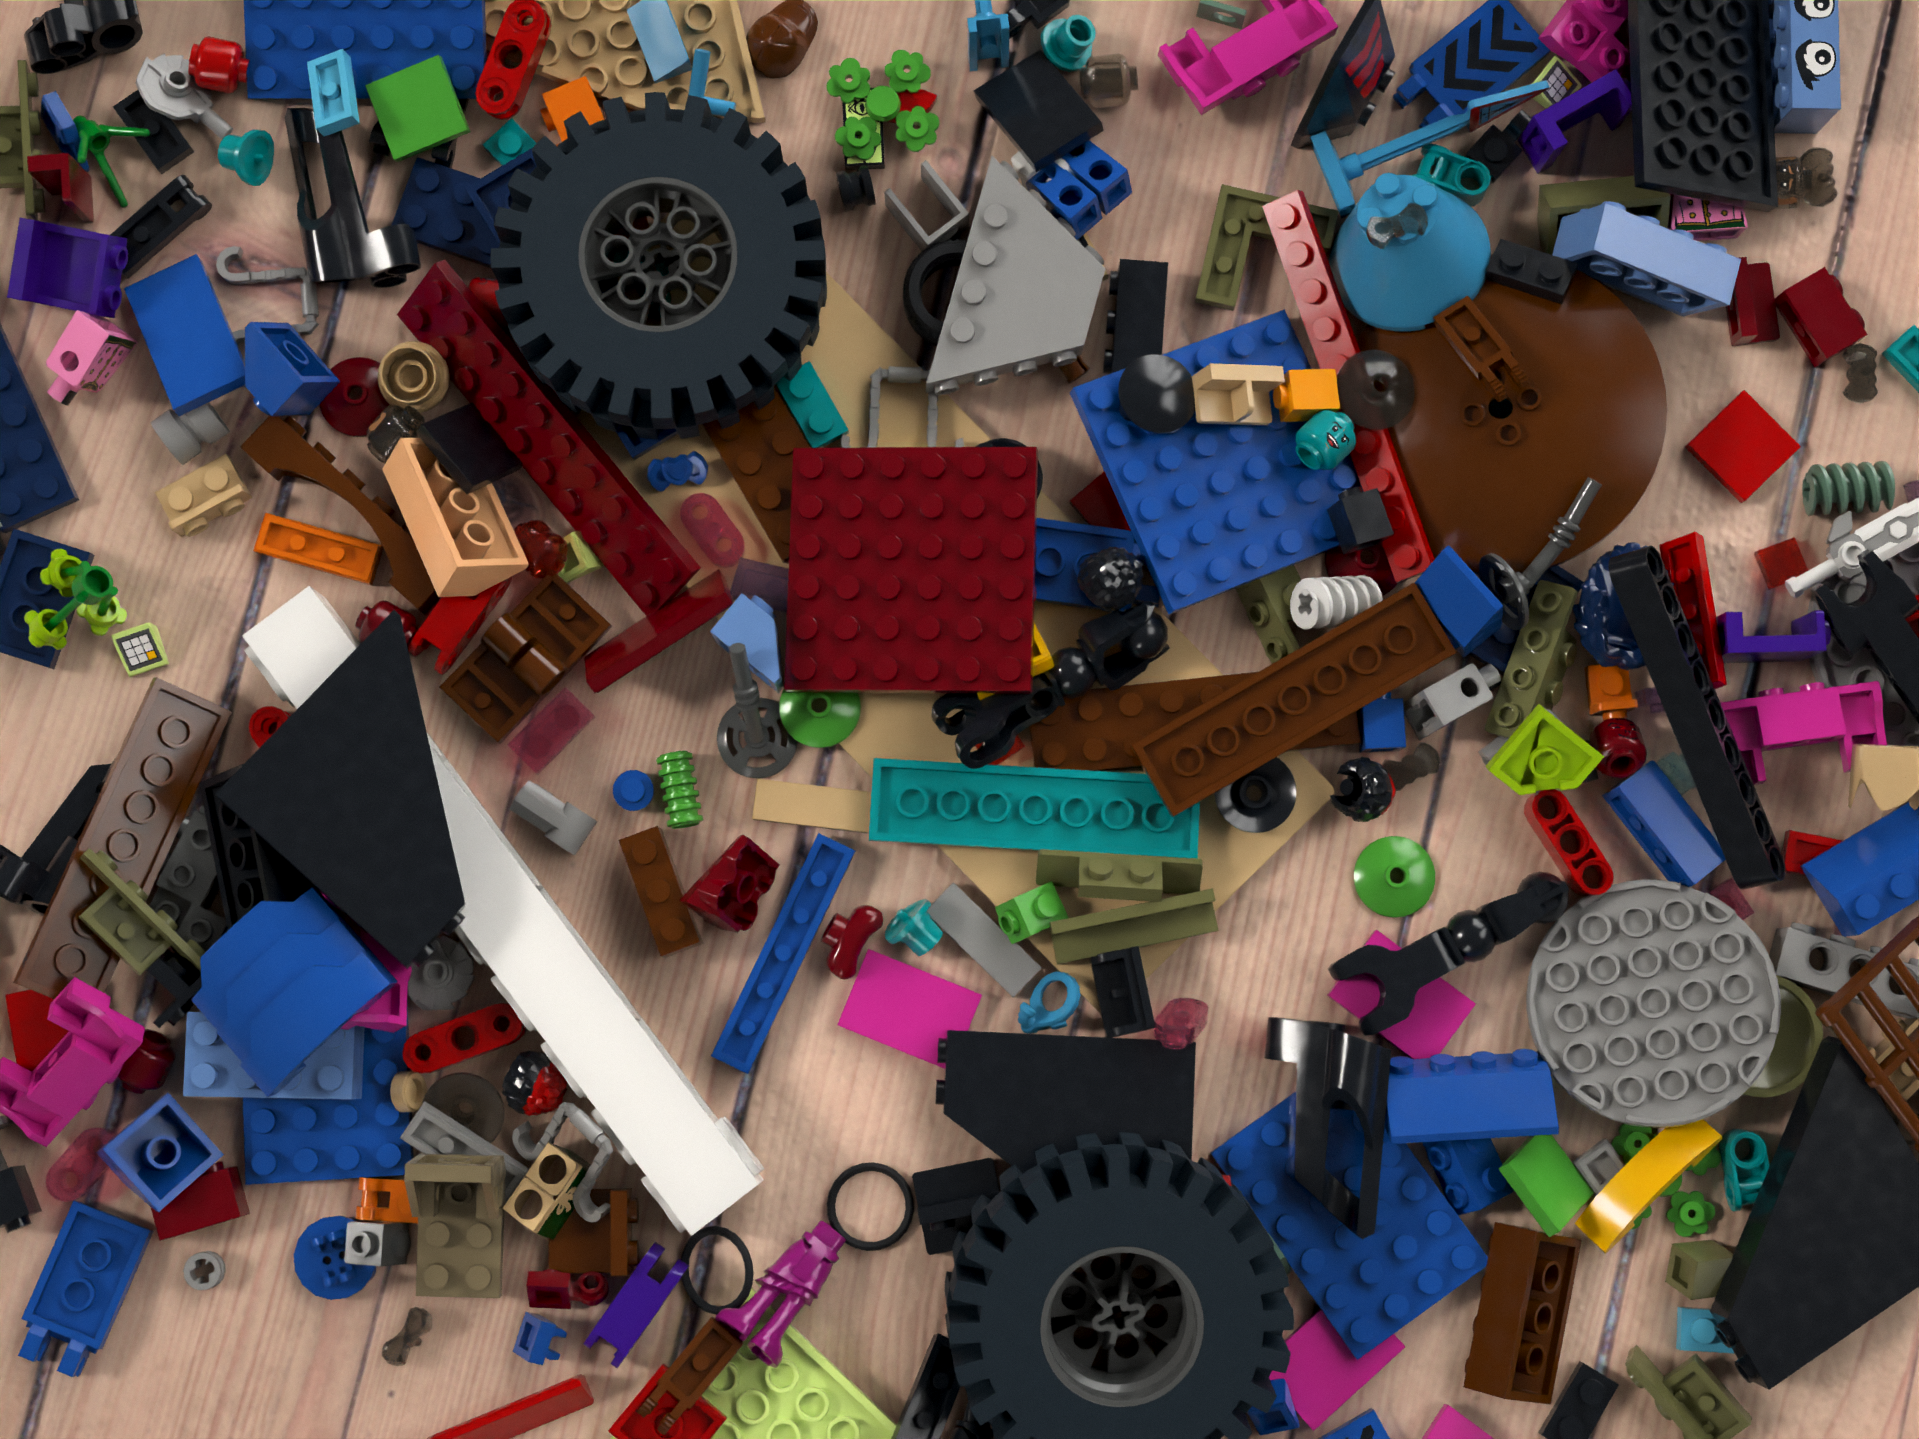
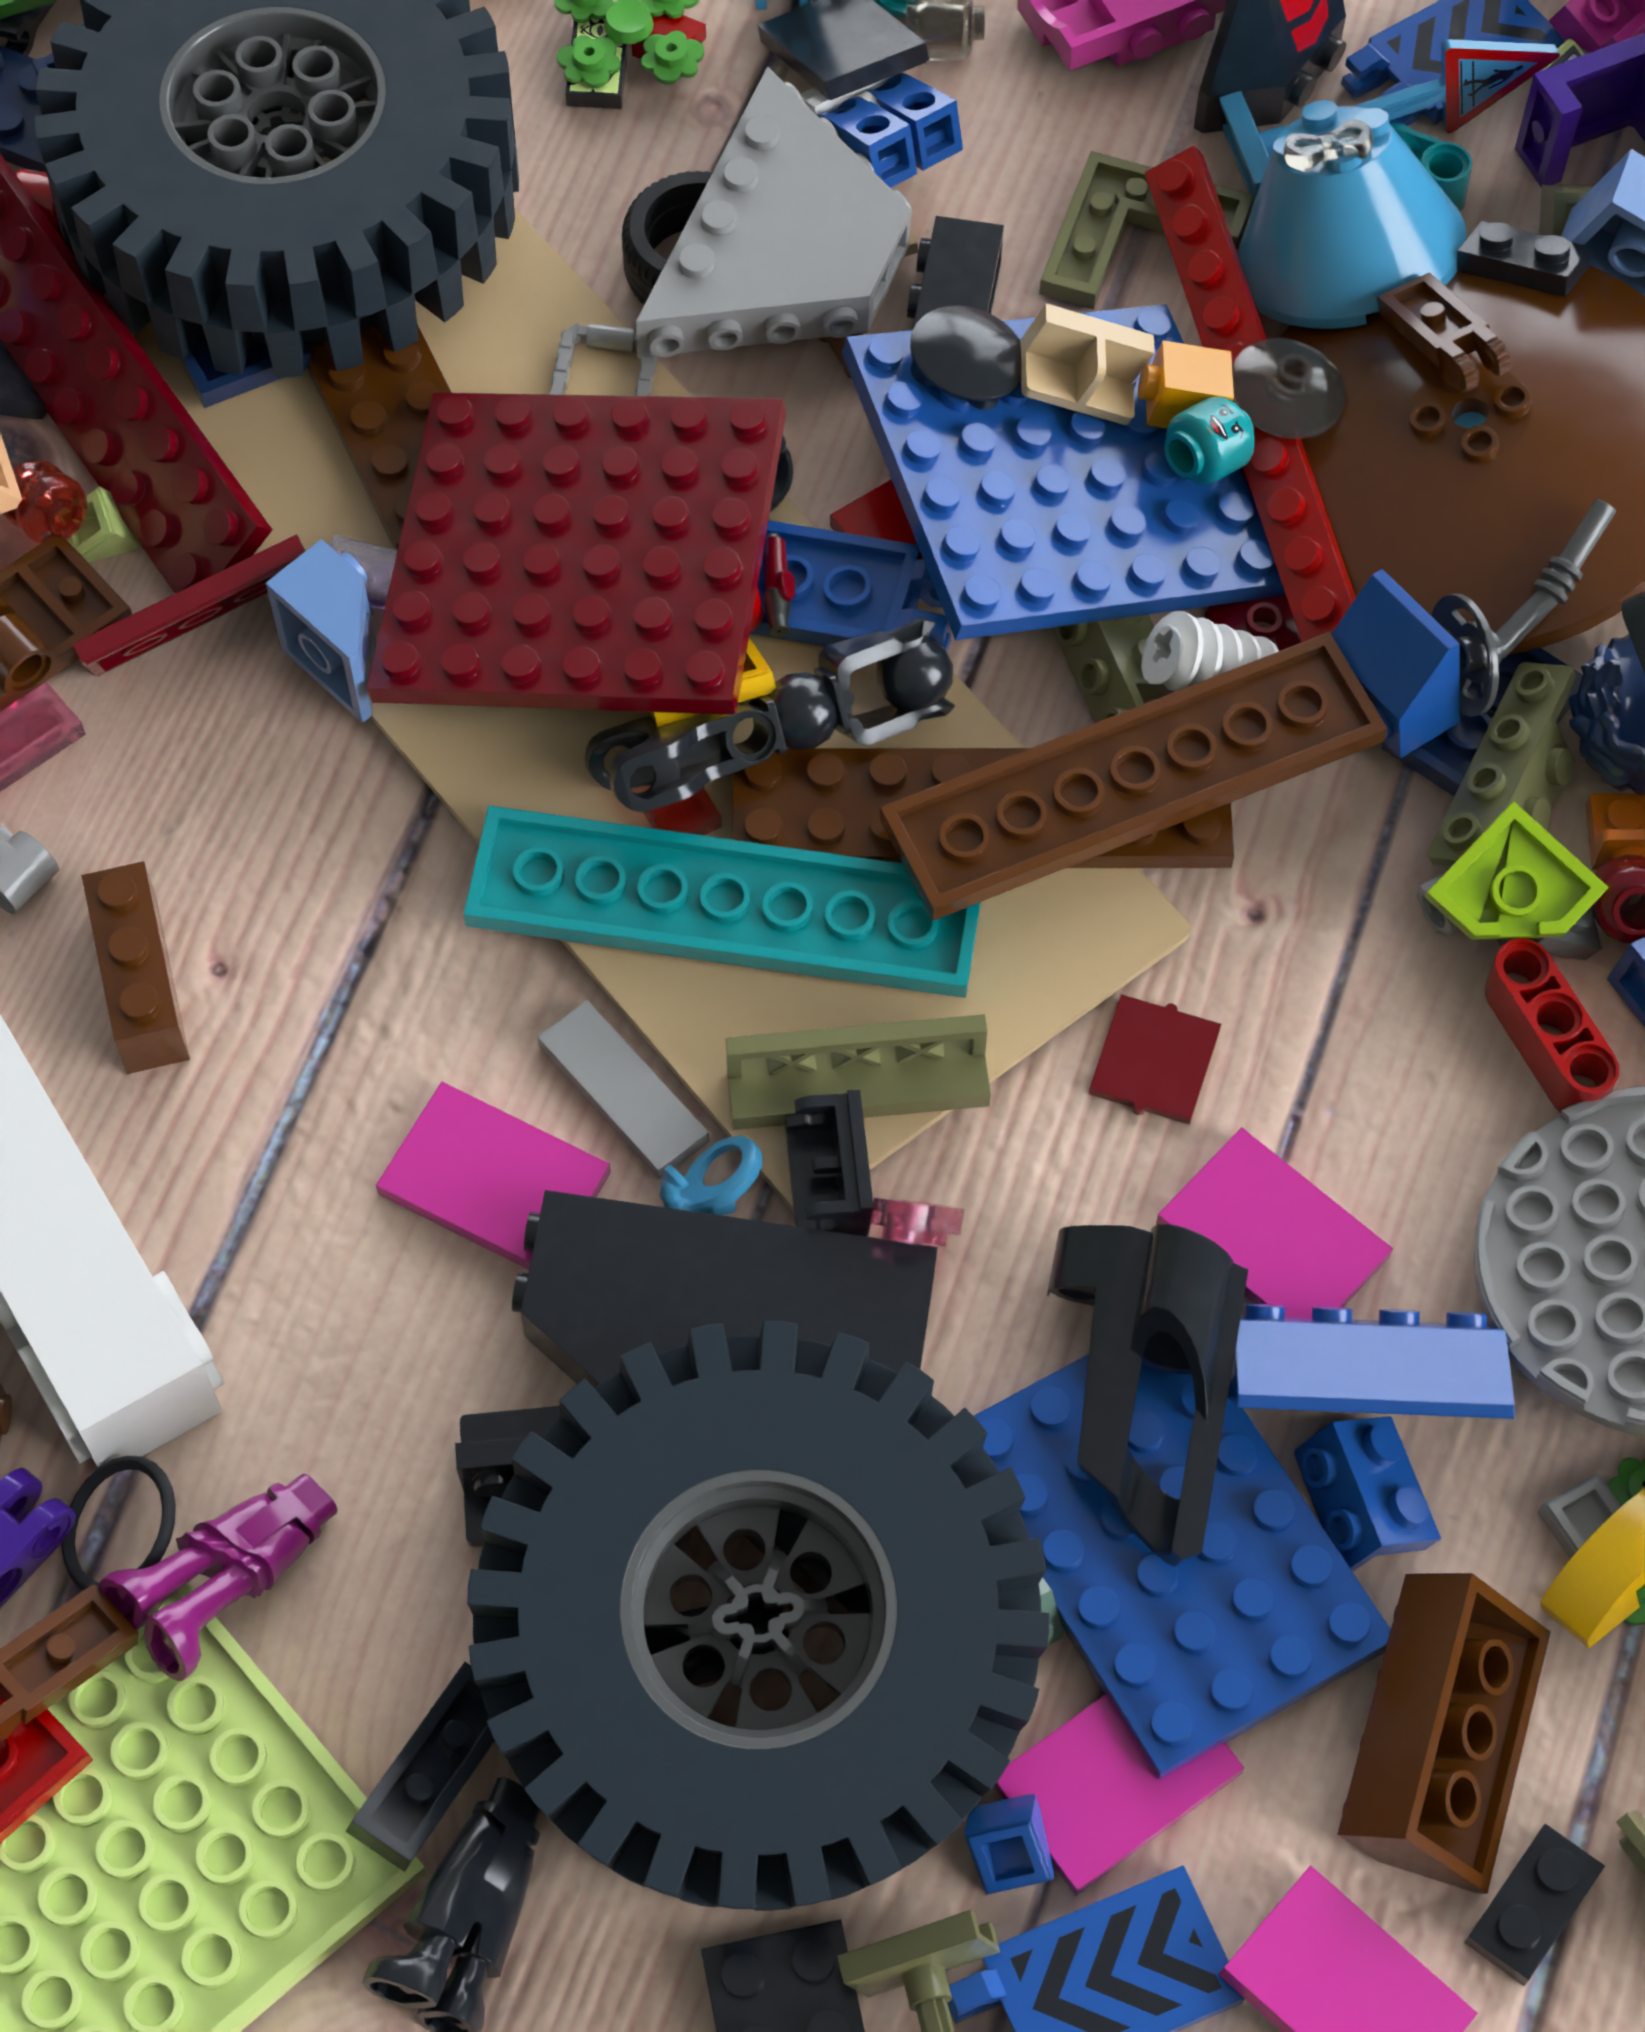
camera: 10 degrees right, 20 degrees down
(633, 790) = (122, 834): blue plate -> none
(677, 470) = (252, 420): blue piece -> none
(679, 789) = (191, 835): bright green piece -> none
(712, 529) = (299, 498): clear pink plate -> none
(732, 886) = (244, 961): dark red slope -> none
(753, 726) = (317, 765): dark grey dish -> none
(783, 953) = (306, 1078): blue plate -> none
(812, 407) = (468, 354): teal plate -> none
(812, 806) = (384, 880): tan tile -> none
(823, 728) = (426, 765): bright green dish -> none
(848, 937) = (412, 1060): dark red piece -> none
(856, 188) = (576, 117): black wheel -> none
(909, 1204) = (388, 1405): black tyre -> none
(914, 928) = (519, 1053): teal piece -> none
(949, 231) = (690, 123): light grey piece -> none
(1030, 912) = (693, 1041): bright green bracket -> none
(1045, 575) = (778, 585): none -> piece
(1111, 578) = (875, 582): black piece -> none
(1119, 874) = (830, 994): olive bracket -> none
(1272, 808) = (1088, 890): black dish -> none
(1317, 882) = (1155, 1059): none -> dark red piece
(1359, 520) = (1253, 549): black brick -> none
(1366, 790) = (1240, 918): black piece -> none
(1374, 882) = (1273, 1087): bright green dish -> none
(1382, 725) = (1268, 842): blue brick -> none
(1422, 762) = (1311, 911): clear smoke piece -> none
(1450, 698) = (1373, 810): light grey torso -> none
(1467, 938) = (1332, 1158): black piece -> none
(1498, 148) = (1491, 146): black plate -> none
(1546, 1182) = (1493, 1515): bright green tile -> none

